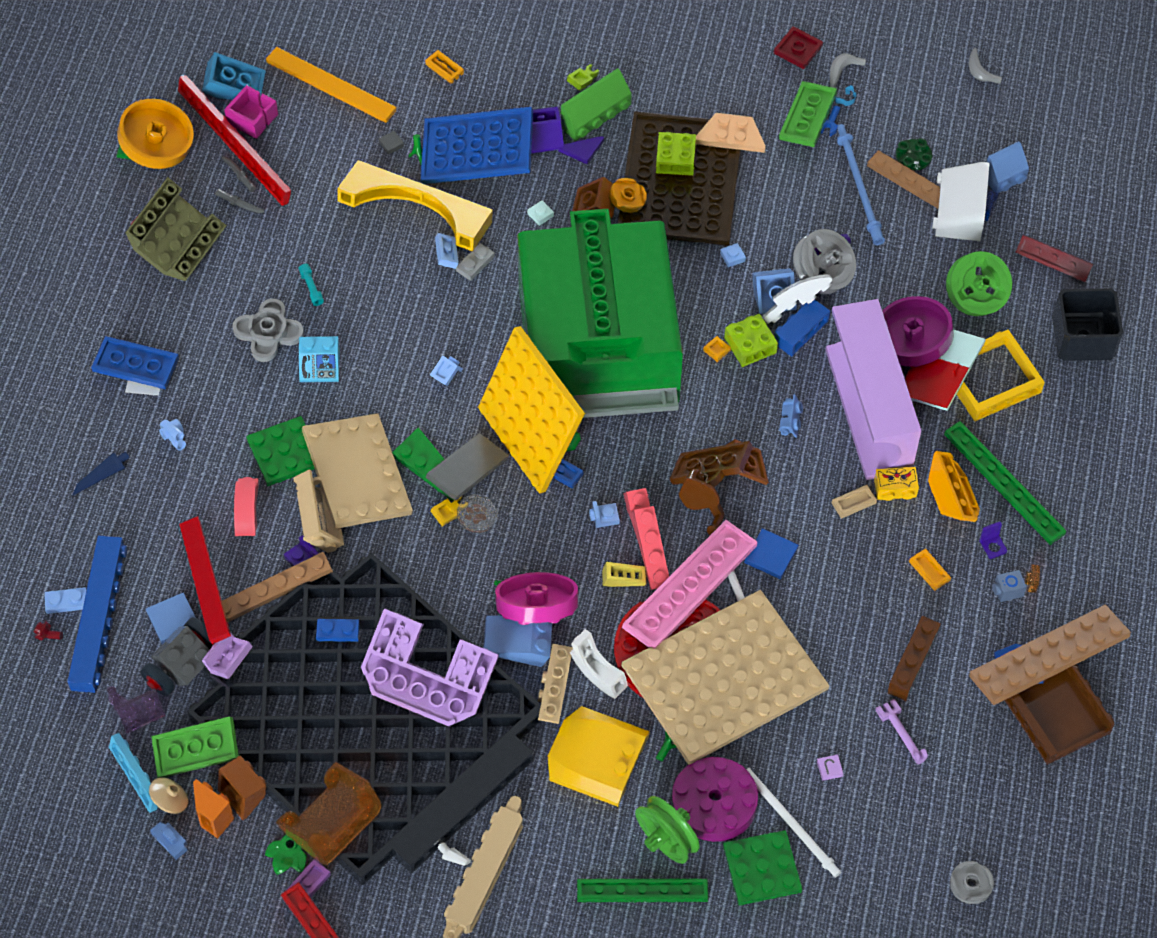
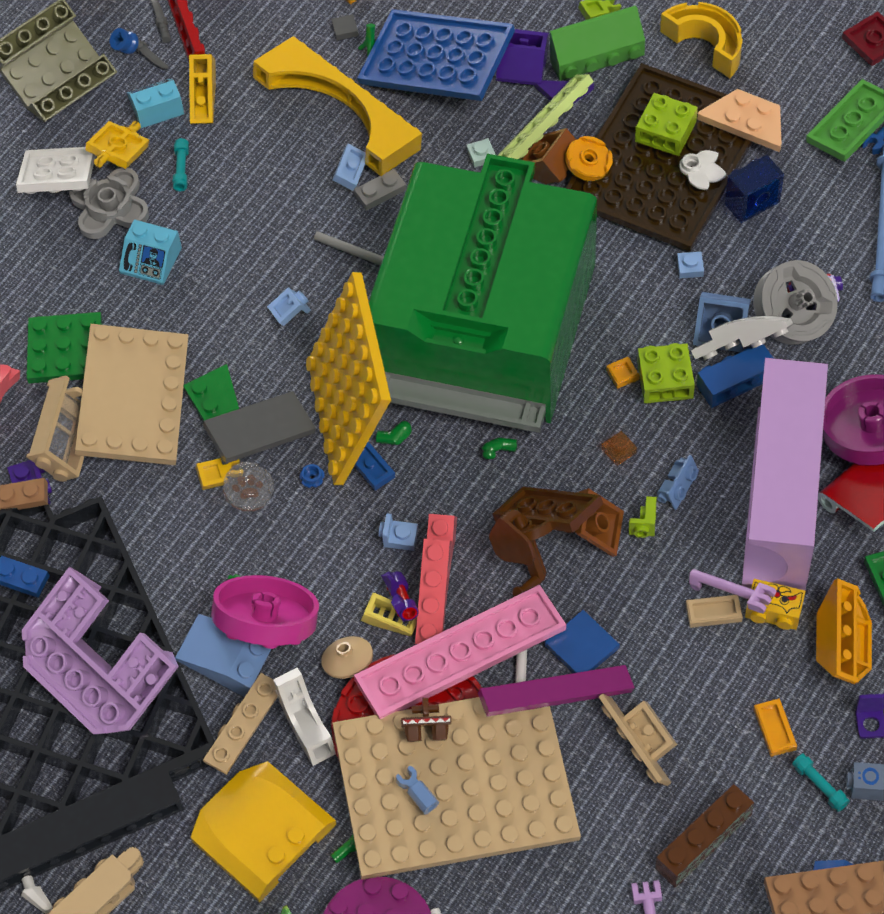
camera: 25 degrees right, 0 degrees up
(216, 315) = (55, 170): none -> white plate
(224, 202) = (124, 41): none -> blue wheel
(255, 282) = (117, 144): none -> yellow plate
(268, 240) = (156, 102): none -> medium azure slope
(301, 220) = (202, 88): none -> yellow slope
(479, 314) = (348, 248): none -> light grey bar
(520, 487) = (312, 470): none -> blue plate
(578, 178) = (547, 117): none -> yellowish green plate
(606, 614) = (347, 657): none -> tan dish
(621, 552) = (398, 587): none -> dark purple piece
(650, 427) = (496, 444): none -> green arm
(674, 68) = (710, 24): none -> yellow brick
(701, 638) = (413, 725): none -> reddish brown hips
(705, 689) = (418, 791): none -> medium blue bar
(715, 180) = (703, 169): none -> white plate
(738, 405) = (619, 448): none -> clear orange plate
(759, 185) = (754, 188): none -> clear blue brick
(771, 590) = (555, 690): none -> magenta tile
(781, 449) = (646, 524): none -> lime bracket
(844, 600) = (645, 733): none -> tan bracket
(887, 481) = (756, 597): none -> lavender hinge
(992, 605) = (837, 799): none -> teal bar

